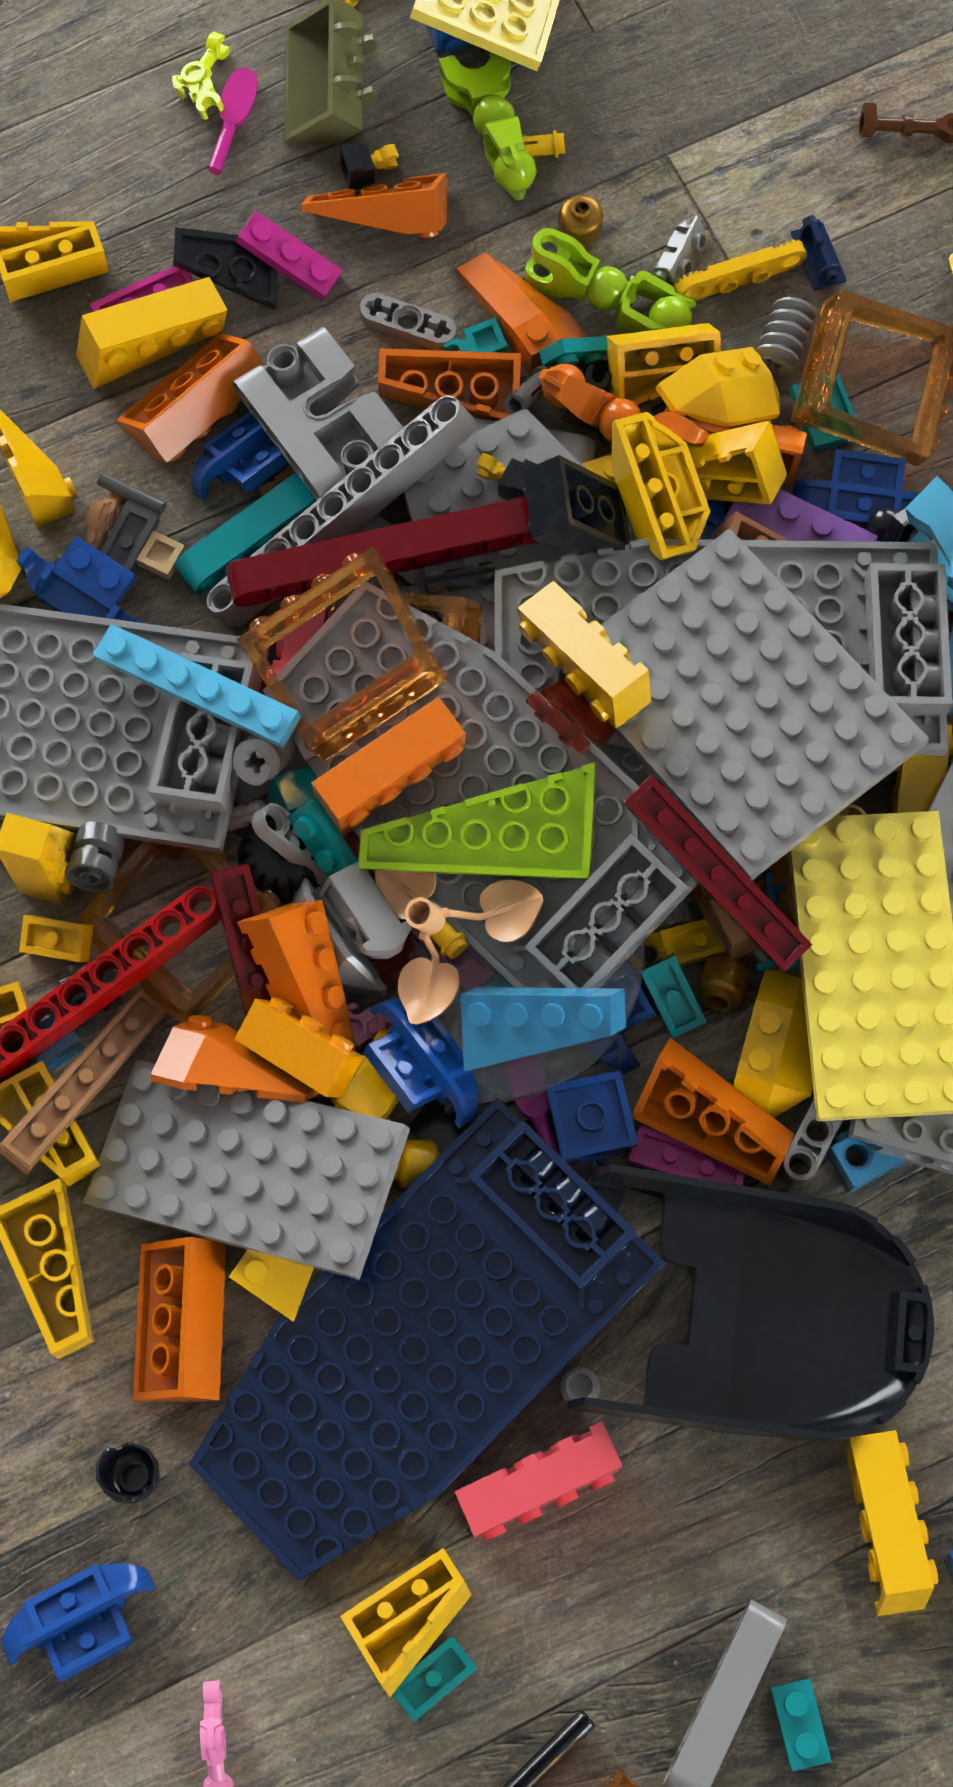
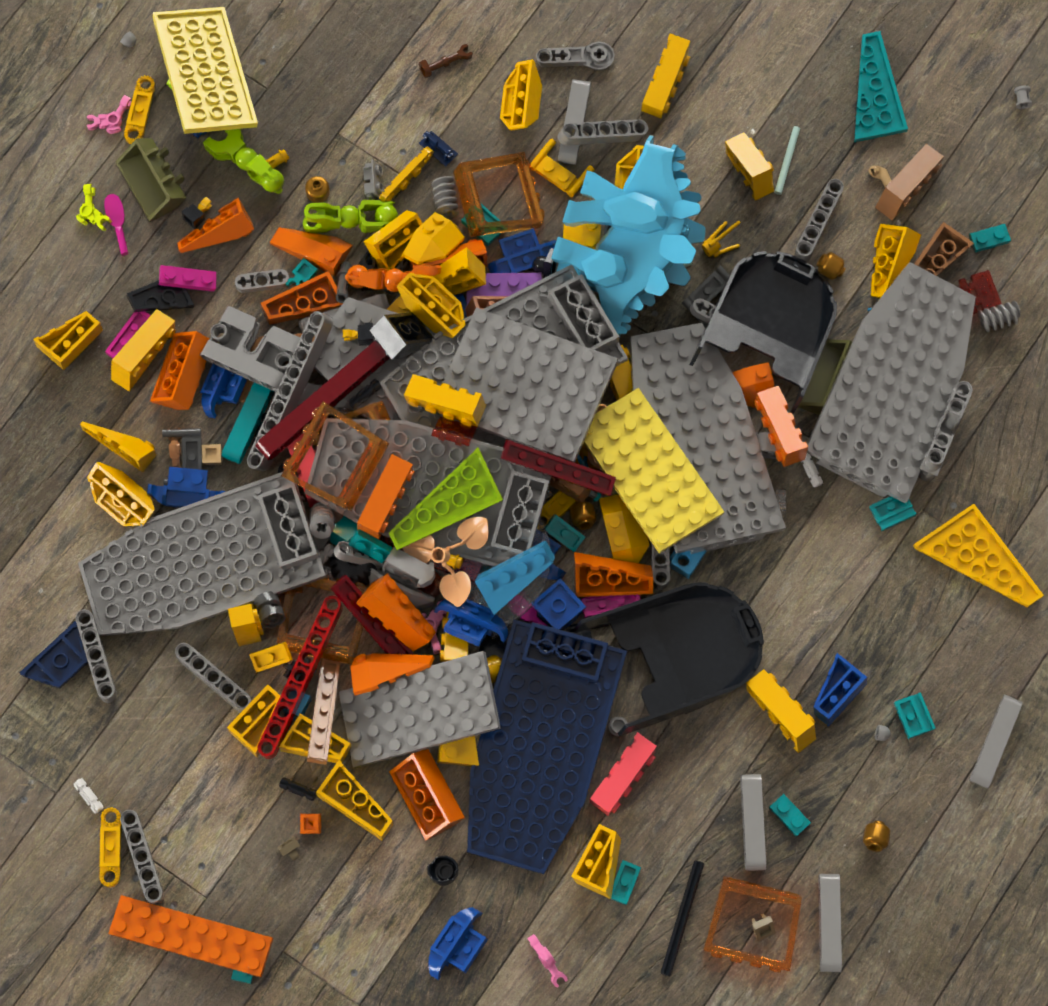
camera: 30 degrees left, 0 degrees up
(197, 686) = (274, 506): medium azure plate -> none
(299, 1046) = (414, 643): light orange brick -> none
(575, 350) = (350, 258): teal plate -> none

